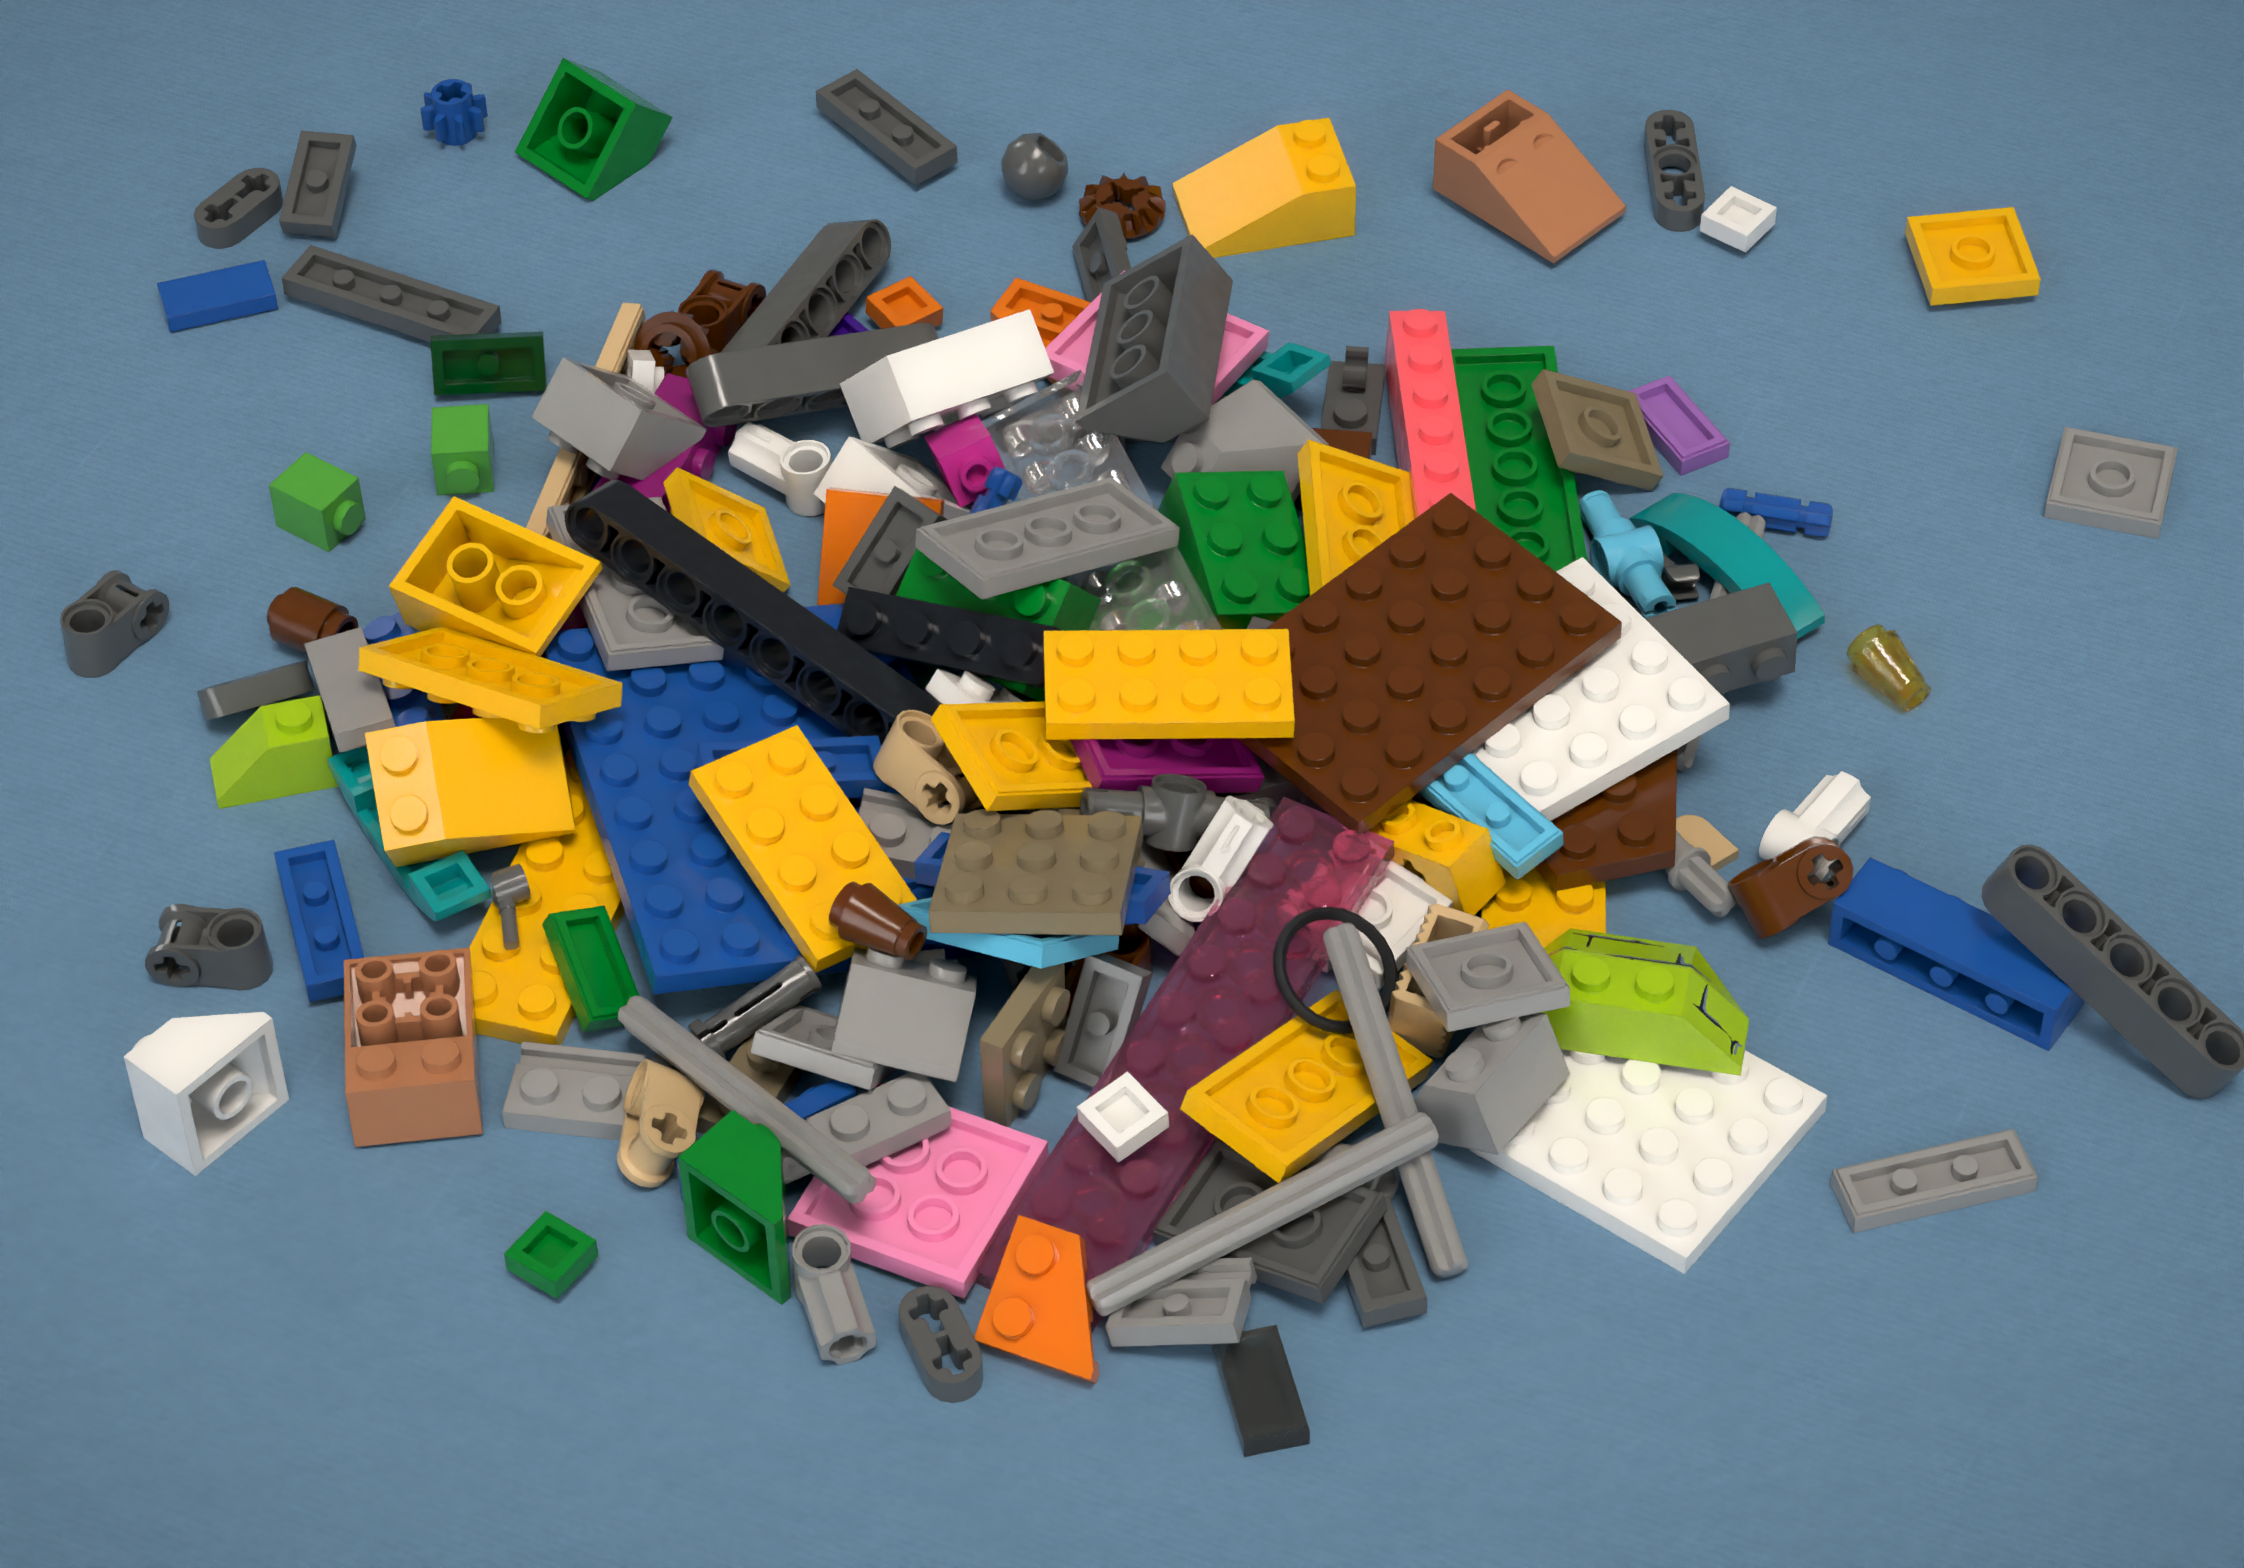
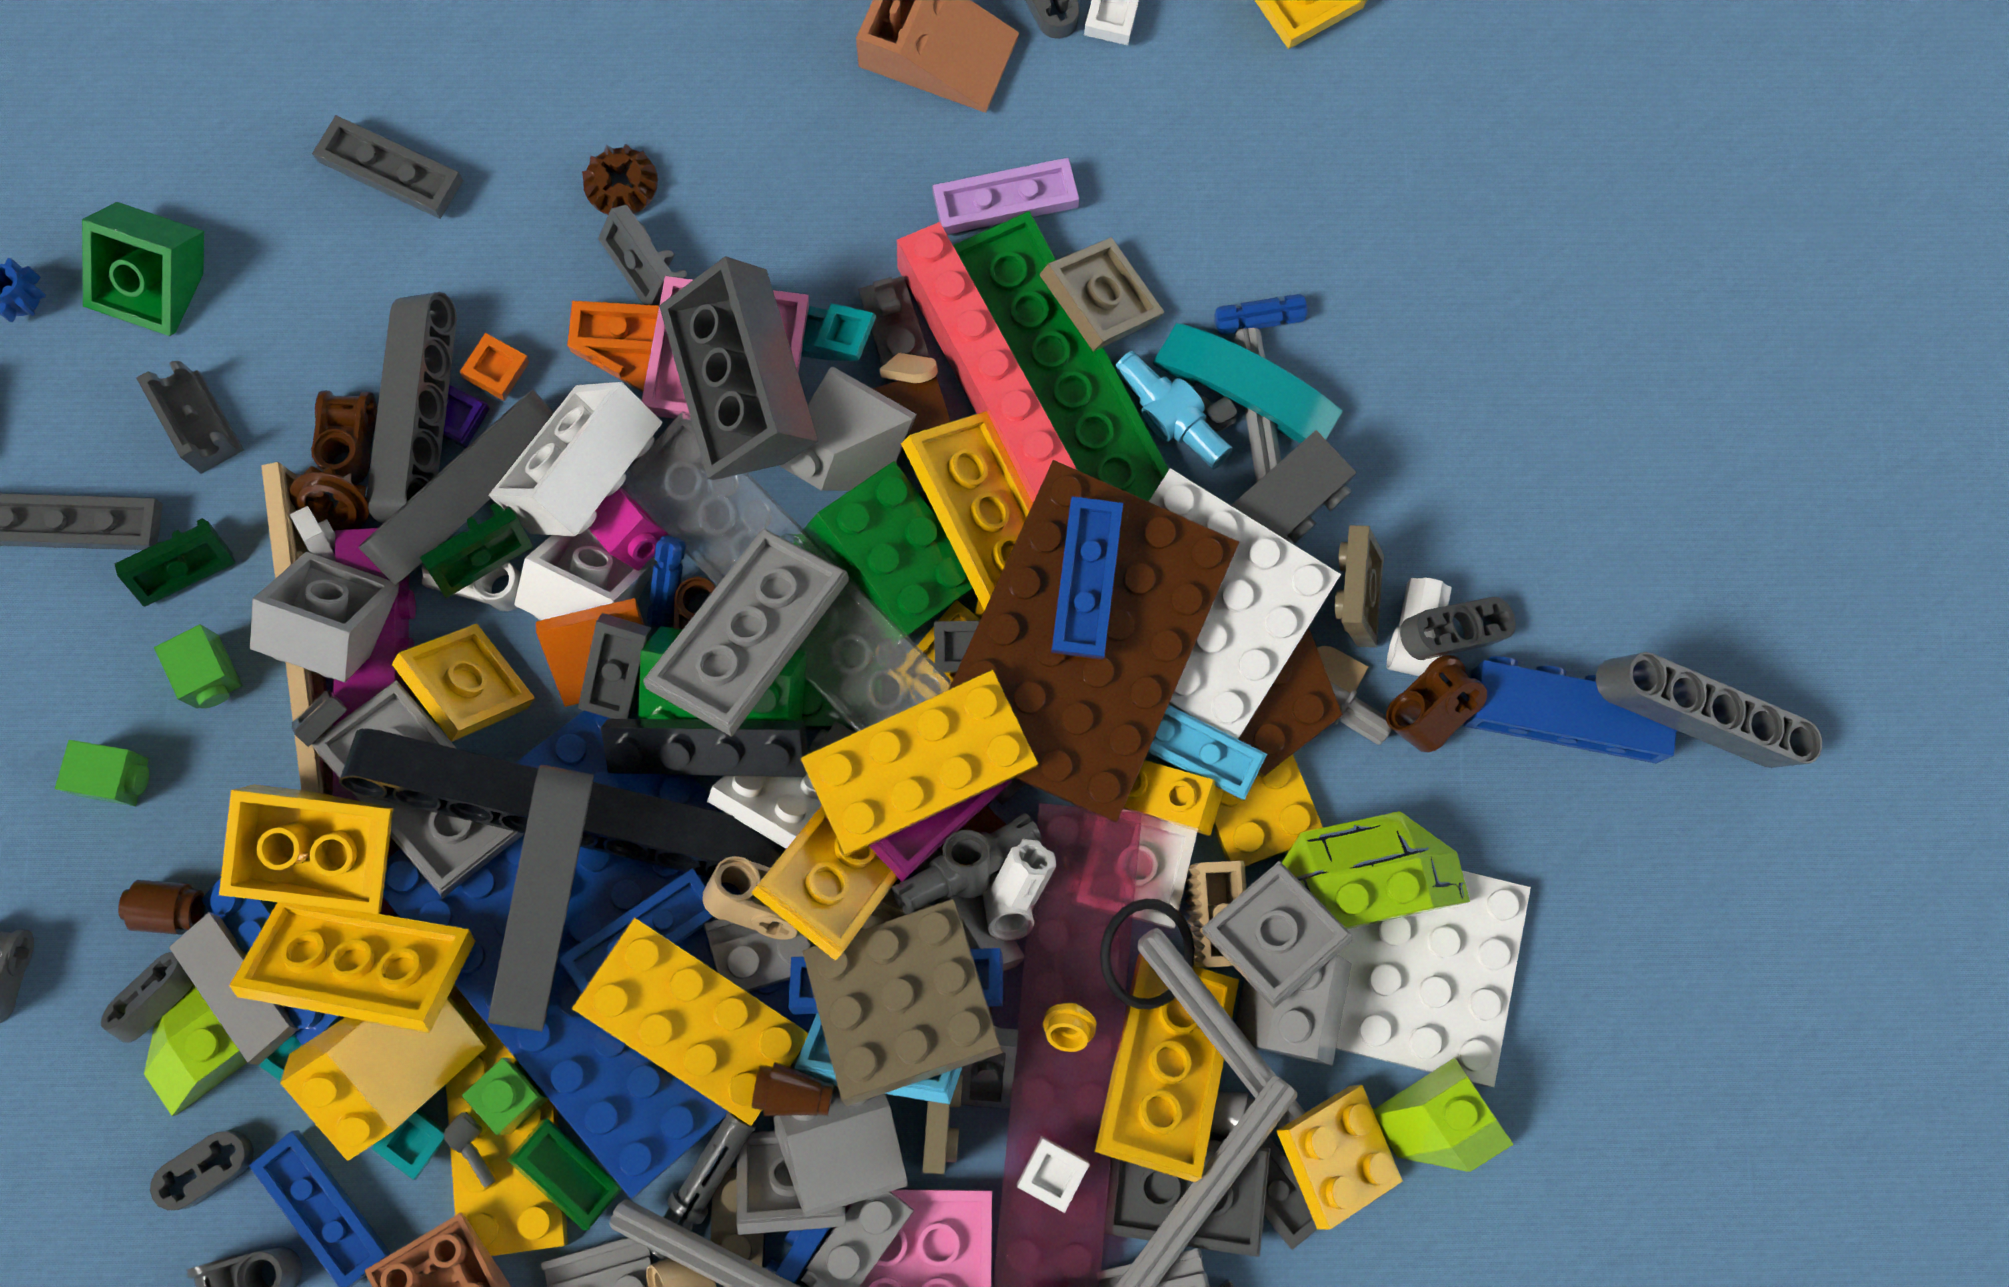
camera: 30 degrees left, 30 degrees up
(220, 852) = (208, 1179): none -> dark grey beam
(563, 491) = (318, 717): none -> dark grey tile
(572, 260) = (191, 417): none -> dark grey hinge
(575, 861) = (505, 1096): none -> bright green brick
(710, 673) = (540, 898): none -> dark grey beam
(802, 416) = (477, 551): none -> dark green plate
(1034, 166) = (533, 171): dark grey piece -> none
(1196, 984) = (1069, 1027): none -> yellow plate
(1271, 192) = (733, 126): yellow slope -> none
(1344, 423) = (909, 368): none -> tan piece
(1431, 583) = (1087, 578): none -> blue plate
(1463, 1240) = (1339, 1156): none -> yellow plate
(1576, 334) = (1005, 195): none -> lavender plate
(1605, 1259) = (1442, 1122): none -> lime slope
(1680, 427) = (1150, 249): medium lavender tile -> none
(1759, 752) = (1361, 598): none -> dark tan plate
(1820, 806) = (1447, 638): none -> dark grey beam
(1887, 666) = (1409, 444): clear yellow cone -> none
(1933, 1180) = (1629, 927): light grey tile -> none
(2111, 482) = (1490, 183): light grey tile -> none

